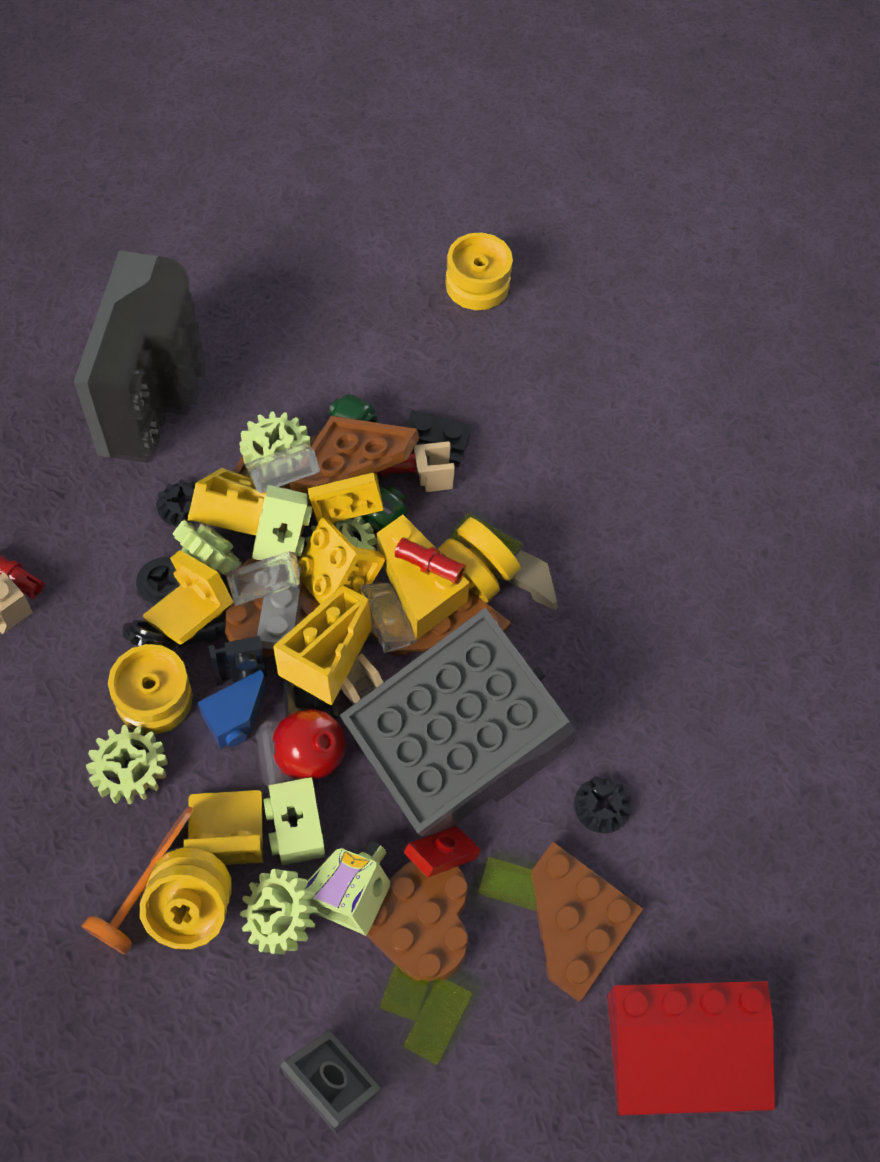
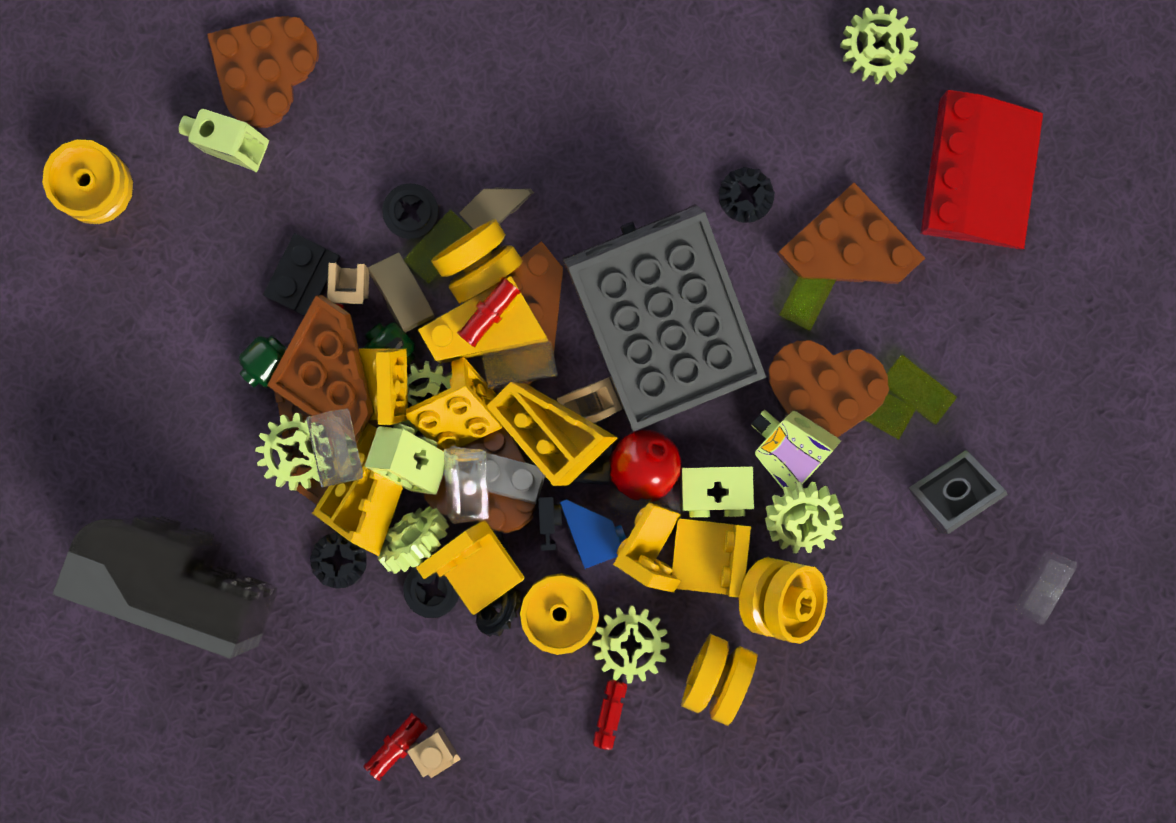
camera: 80 degrees left, 25 degrees up
(53, 759) = (609, 714): none -> red axle
(95, 848) = (724, 681): none -> yellow wheel
(108, 932) = (726, 616): orange piece -> none
(224, 754) = (639, 551): none -> yellow bracket
(439, 511) = (401, 292): none -> dark tan slope
(442, 851) = (776, 357): red plate -> none
(510, 500) = (413, 195): none -> black gear
(542, 349) = (225, 138): none -> yellowish green torso
(611, 382) = (261, 65): none -> dark orange plate
(806, 915) = (887, 55): none -> yellowish green gear

